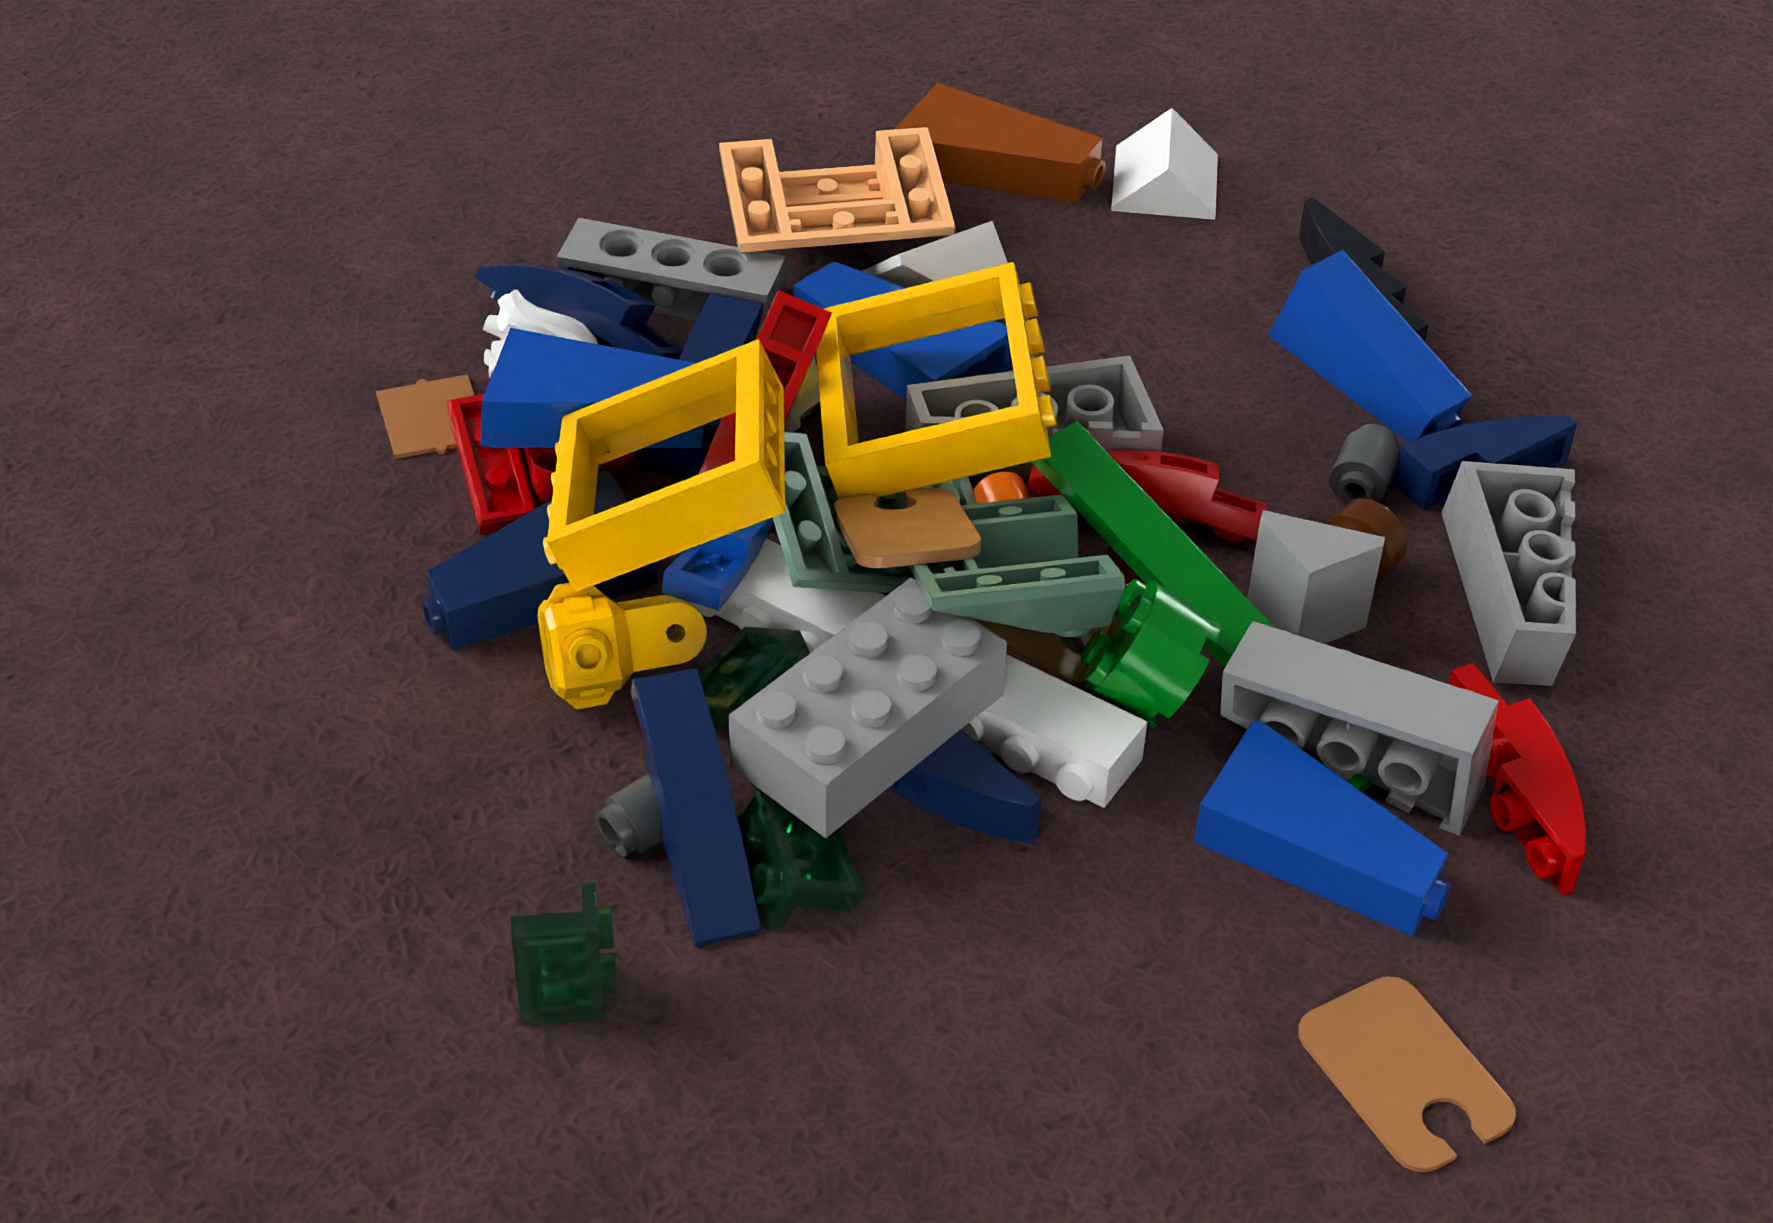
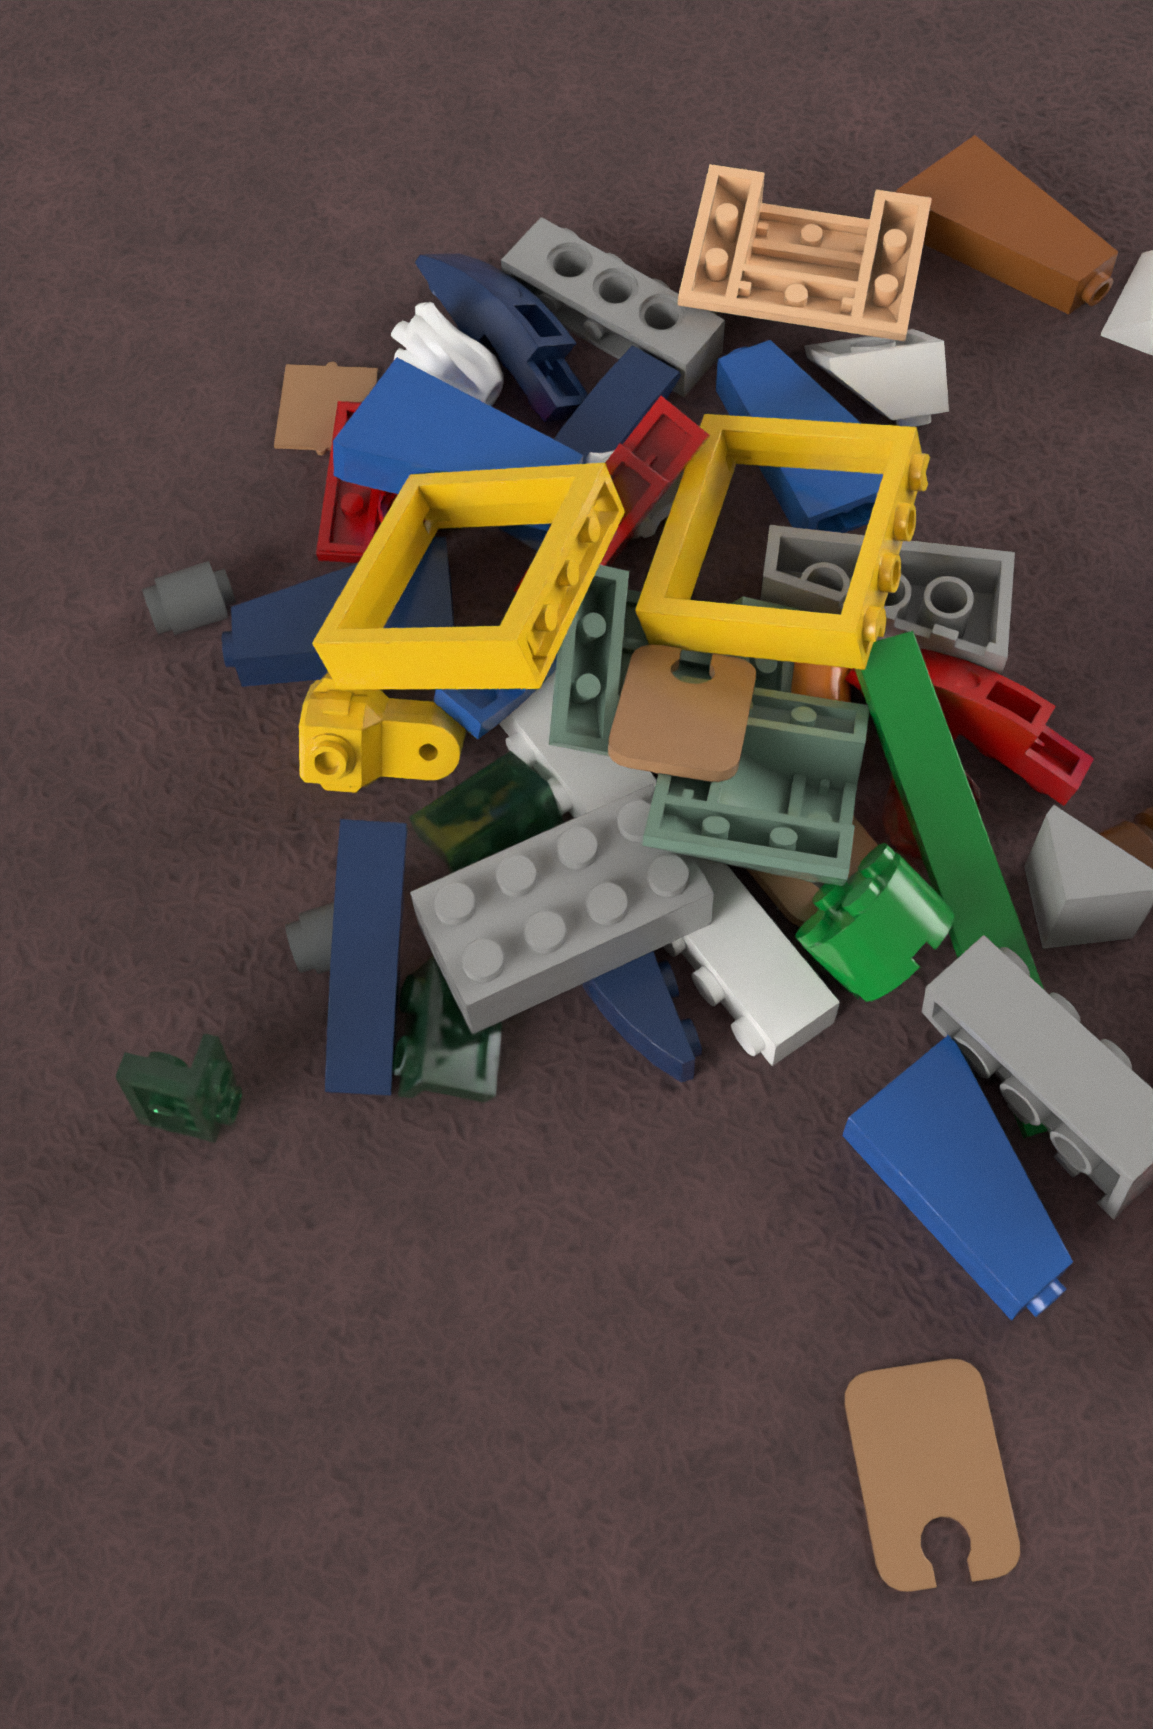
camera: 25 degrees right, 20 degrees up
(372, 586) = (189, 598): none -> dark grey brick

